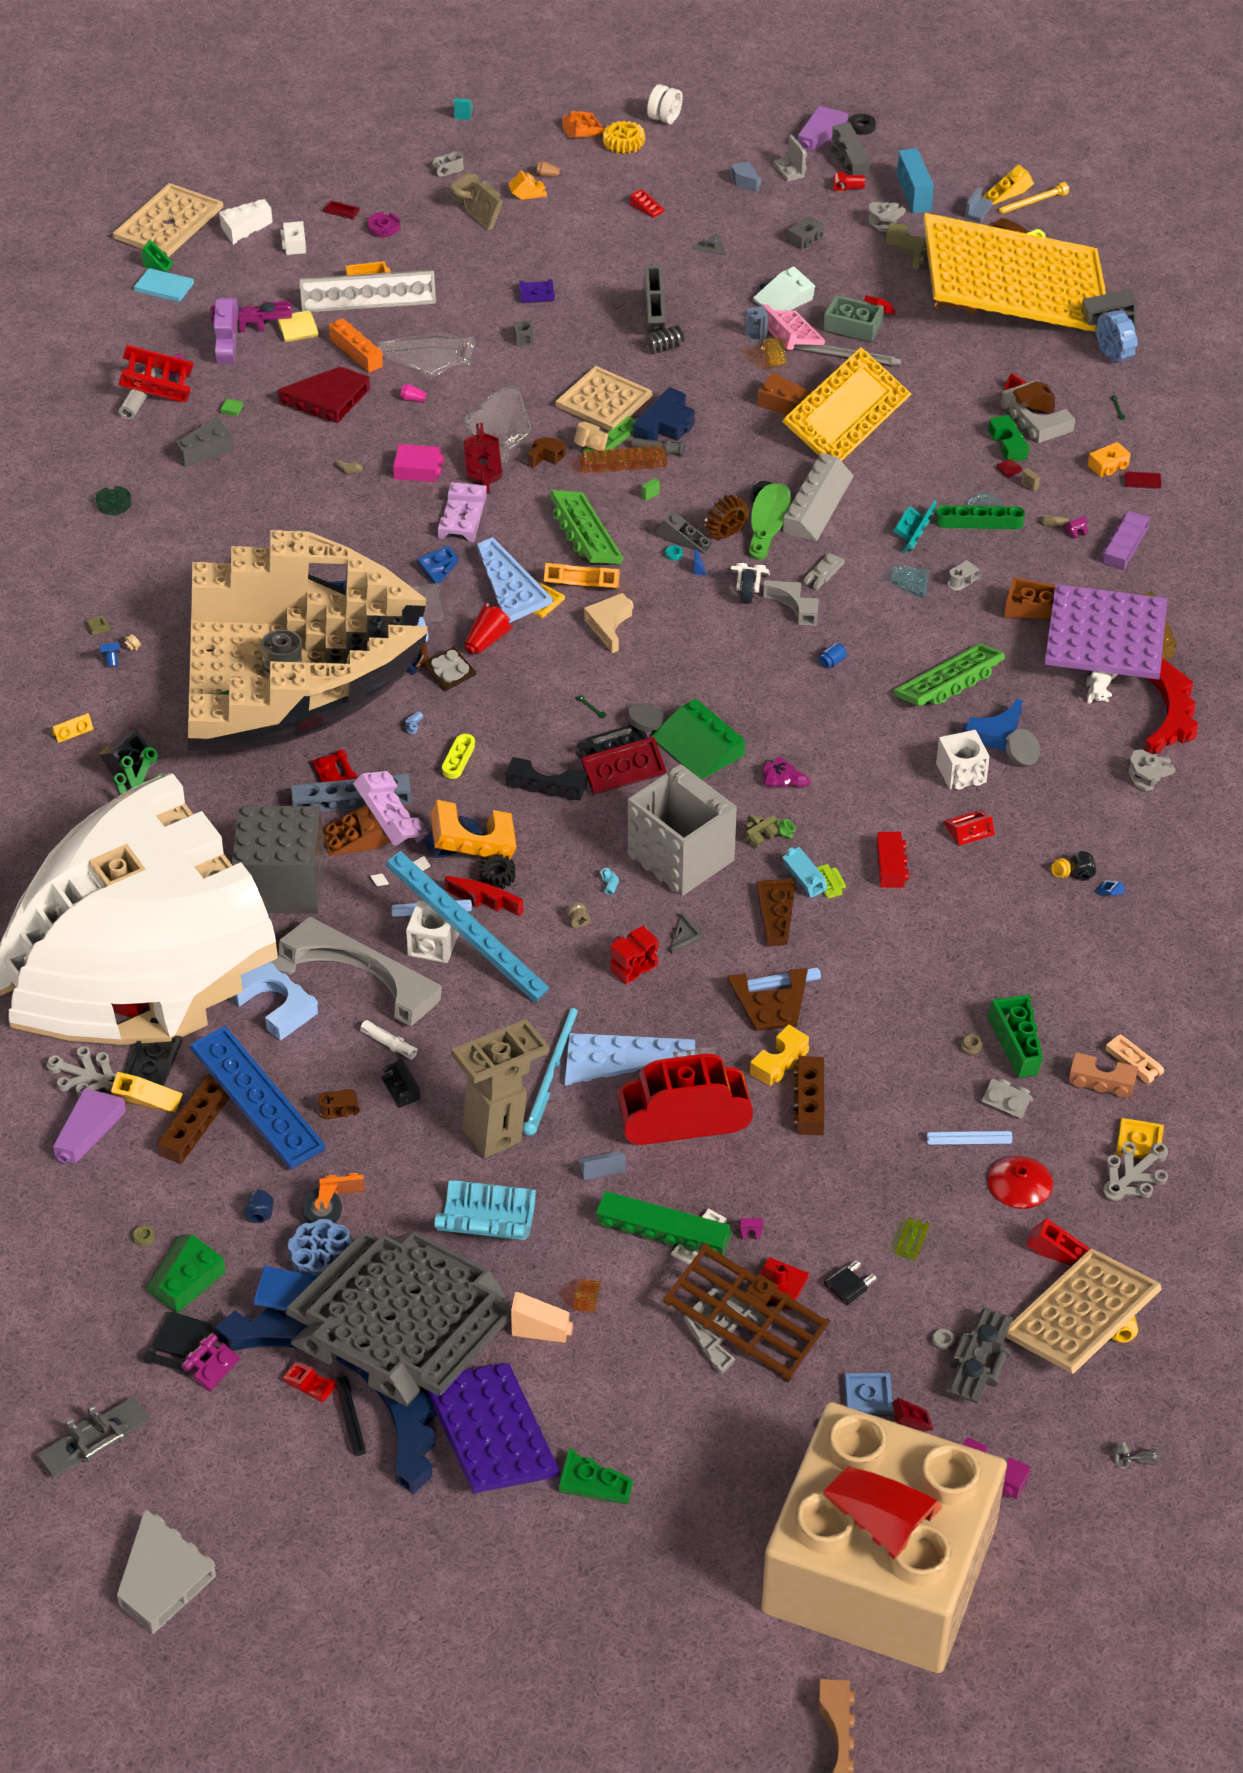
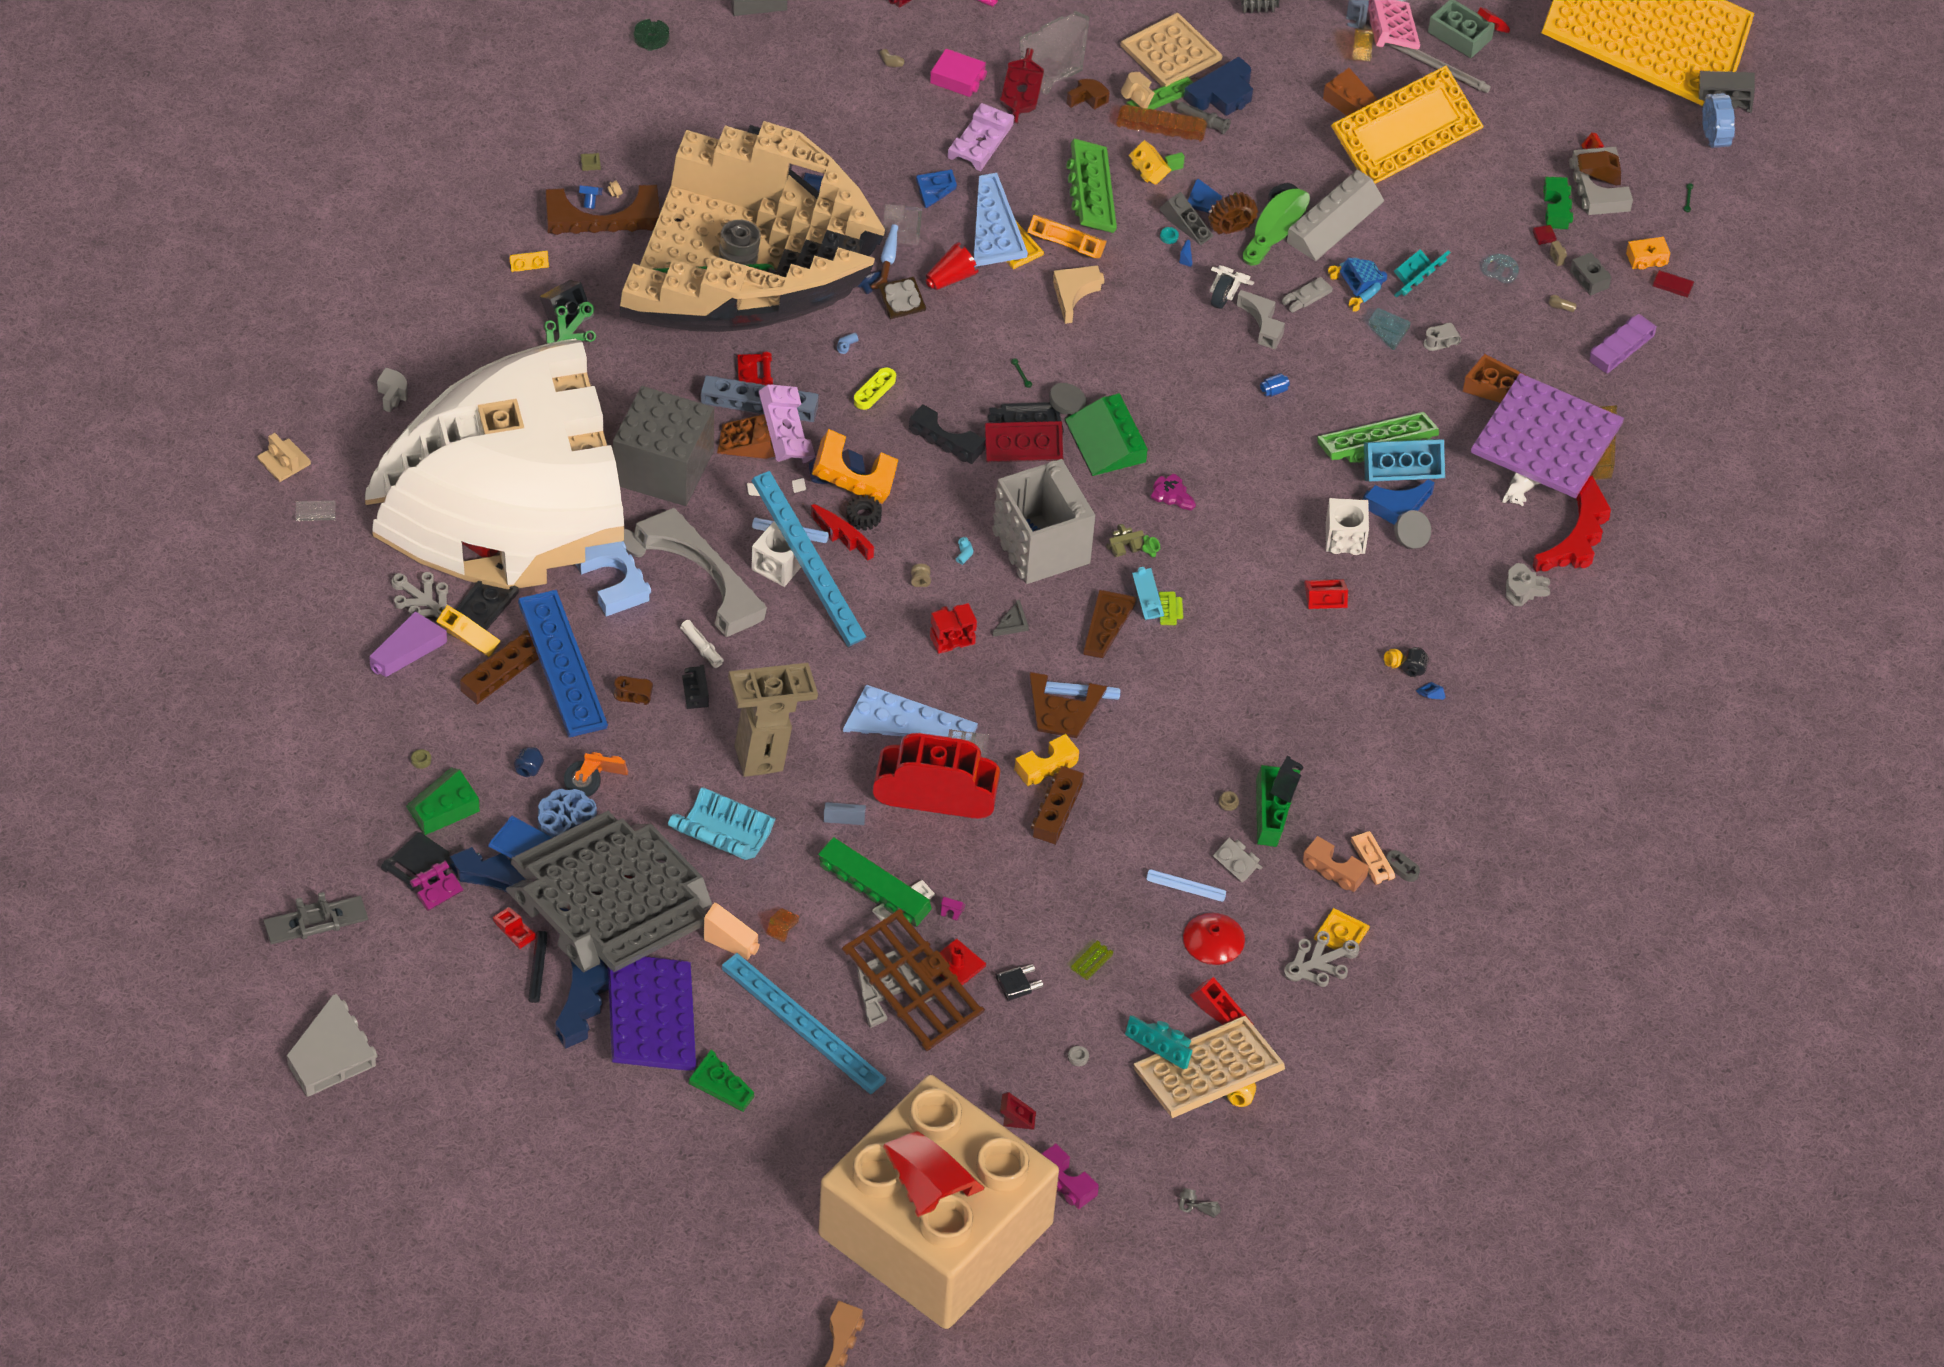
camera: 15 degrees right, 5 degrees up
(93, 680) = (565, 218): none -> reddish brown arch
(530, 1127) = (812, 742): medium azure bar -> none
(628, 494) = (1149, 163): none -> yellow brick
(653, 1391) = (804, 1023): none -> dark azure plate
(692, 512) = (1203, 197): none -> blue wing
(867, 542) = (1361, 277): none -> torso
(869, 1392) = (990, 1081): medium blue tile -> none
(892, 860) = (1236, 604): red brick -> none
(972, 1353) = (1096, 1073): dark grey piece -> none
(980, 517) = (1487, 280): green beam -> none
(986, 687) = (1404, 460): none -> dark azure brick
(1022, 1298) = (1161, 1039): none -> teal bracket
(1029, 1005) = (1287, 780): none -> black hinge
(1068, 489) = (1590, 273): none -> dark grey brick
(1076, 525) = (1579, 314): magenta tile -> none
(1167, 1057) = (1400, 867): none -> dark grey beam

